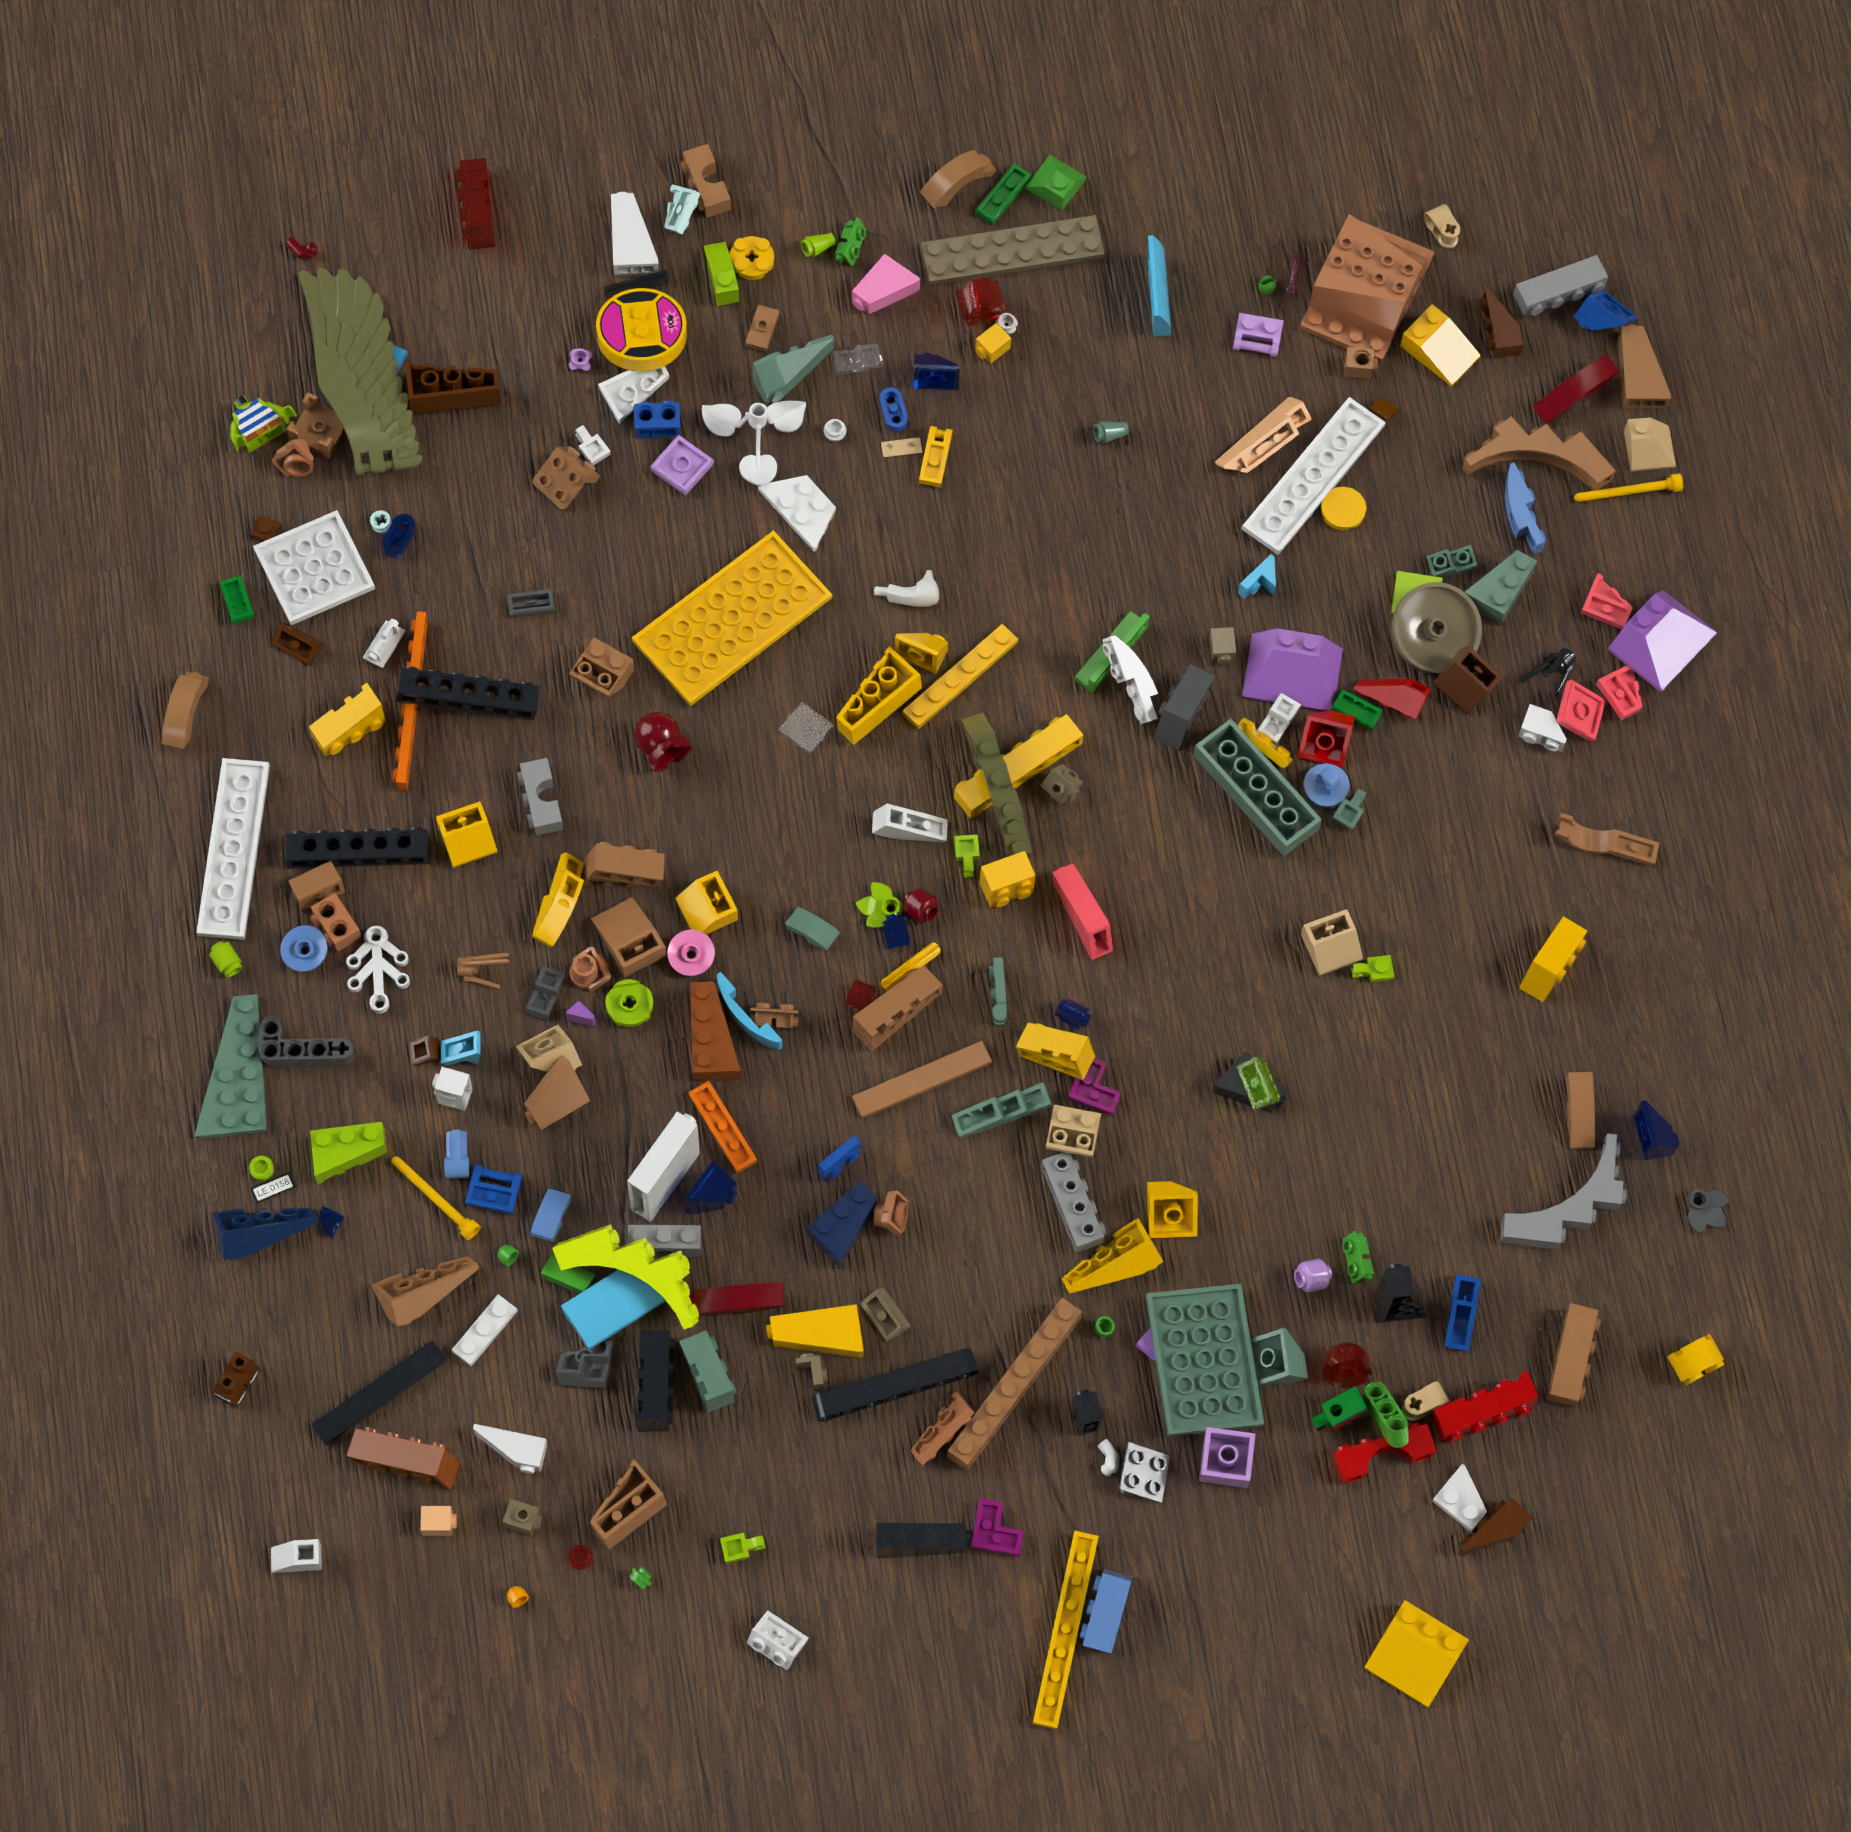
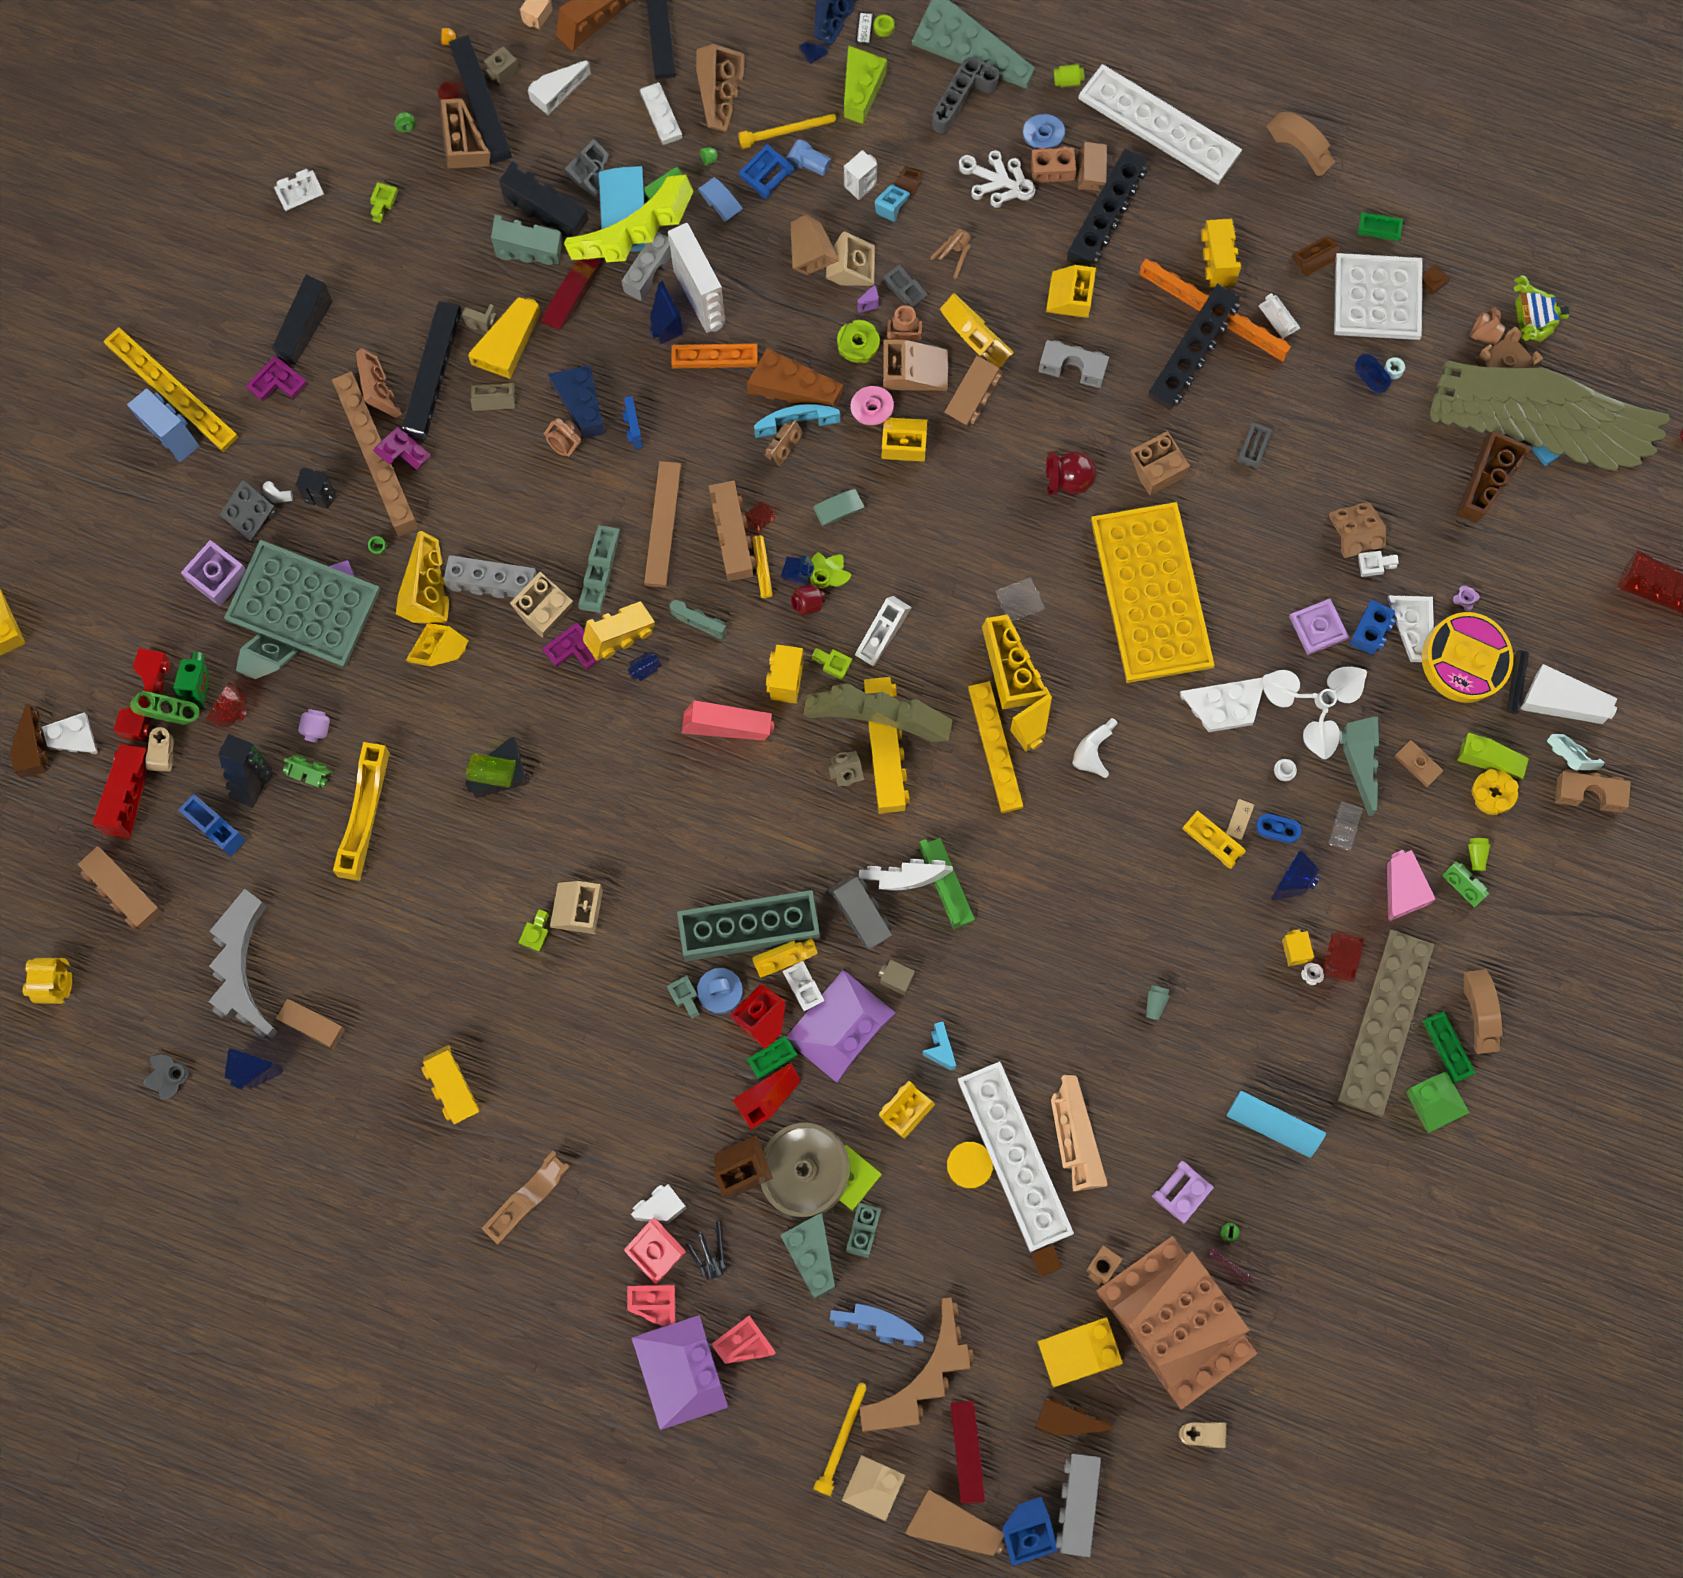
camera: 125 degrees right, 5 degrees up
(569, 1518) = (480, 99): none -> black beam
(995, 1359) = (400, 444): none -> magenta plate
(1332, 577) = (906, 1109): none -> yellow bracket
(1338, 1190) = (370, 778): none -> yellow arch

